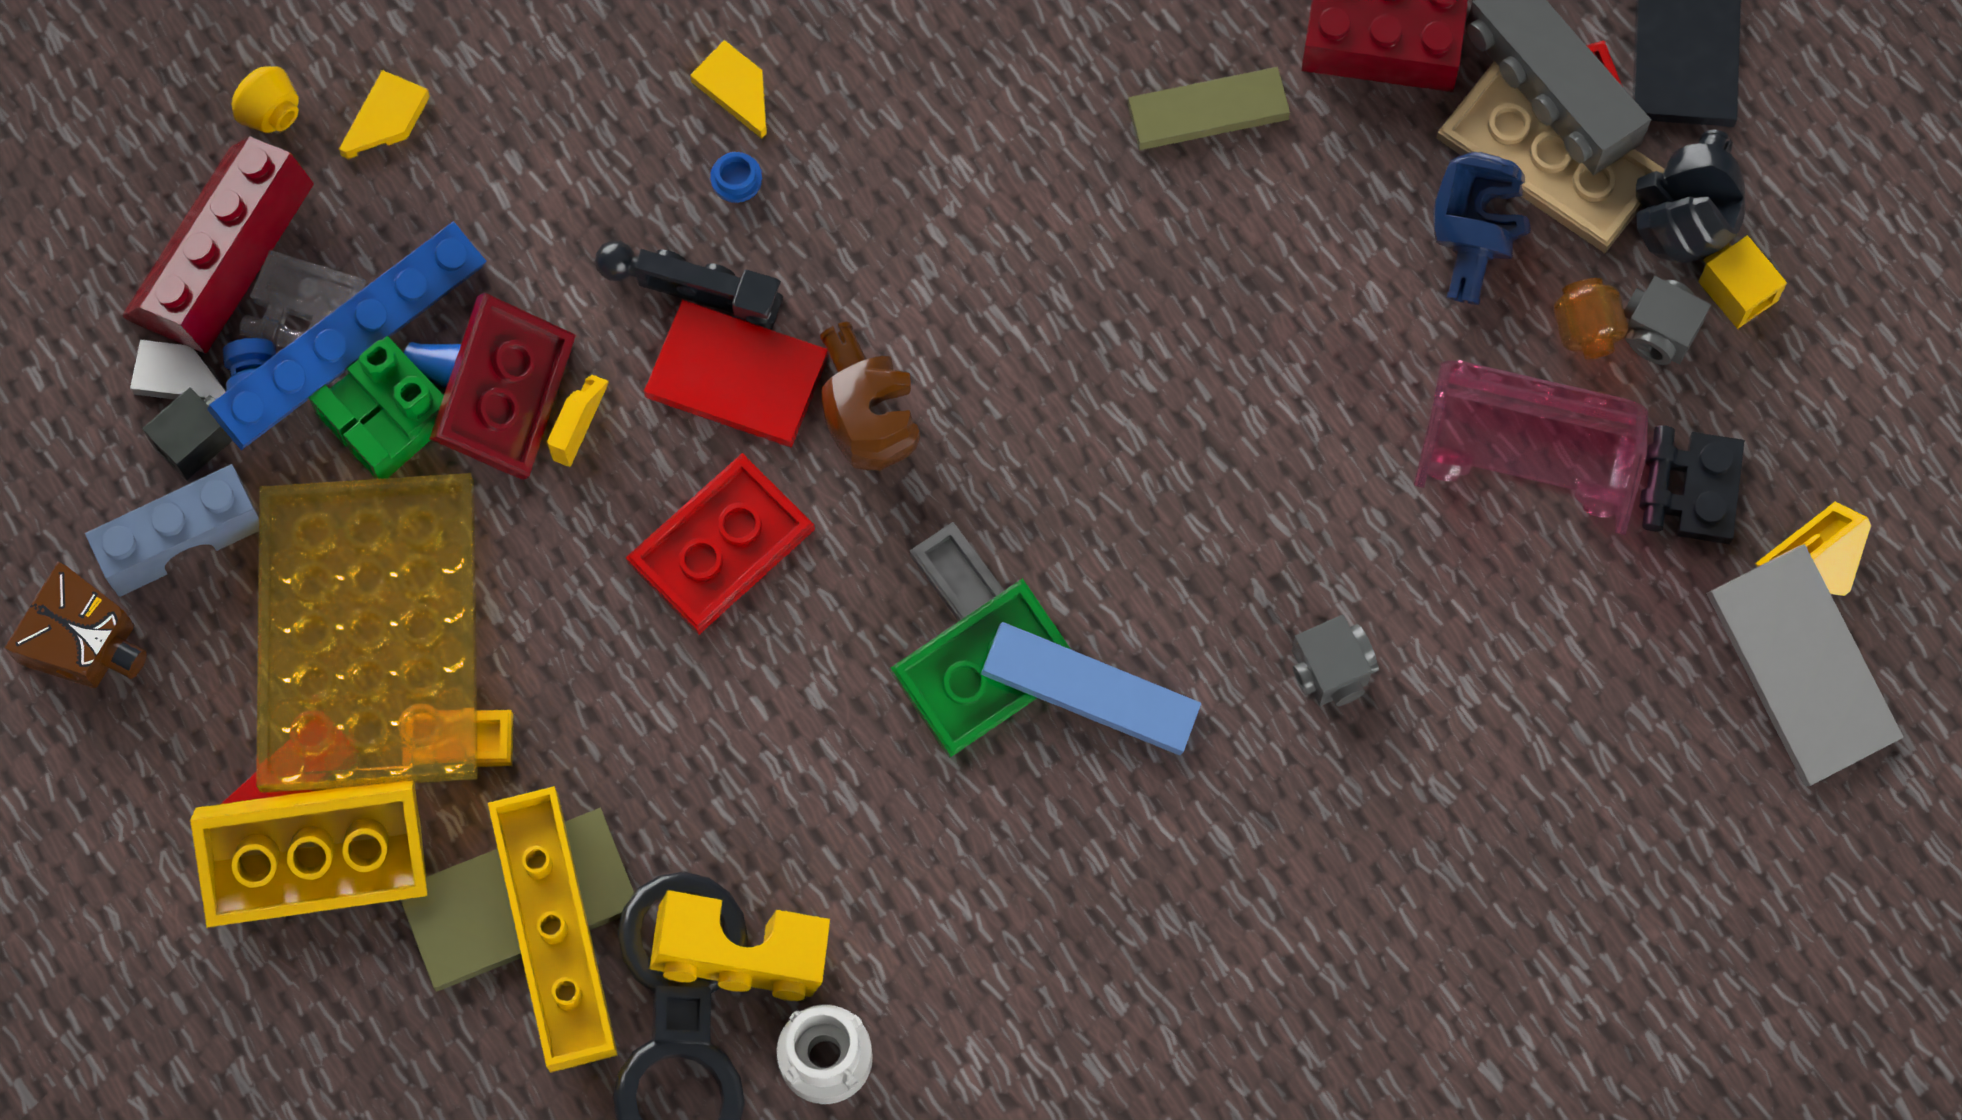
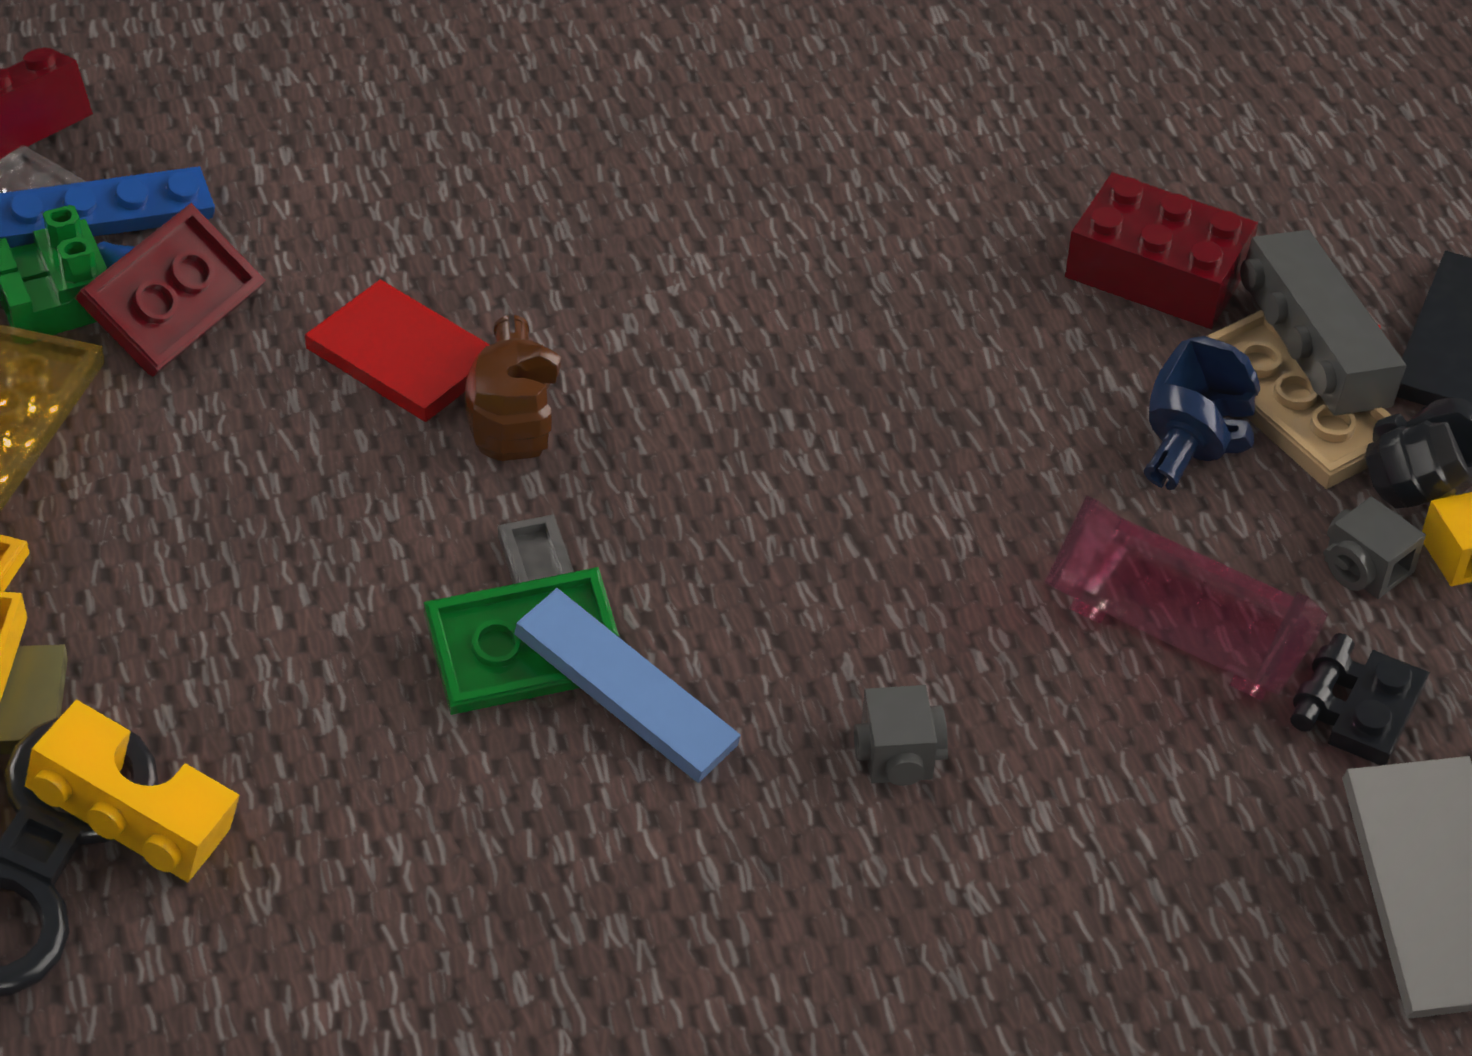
camera: 15 degrees right, 25 degrees down
(266, 100) = (91, 43): yellow cone -> none
(385, 115) = (188, 93): yellow tile -> none
(575, 420) = (224, 338): yellow tile -> none
(720, 543) = (312, 473): red tile -> none
(734, 85) = (514, 150): yellow tile -> none
(736, 177) = (481, 208): blue plate -> none
(749, 298) = (413, 272): black plate -> none
(819, 1025) = (168, 926): white piece -> none
(1208, 108) = (960, 276): olive tile -> none
(1590, 318) = (1290, 520): clear orange head -> none

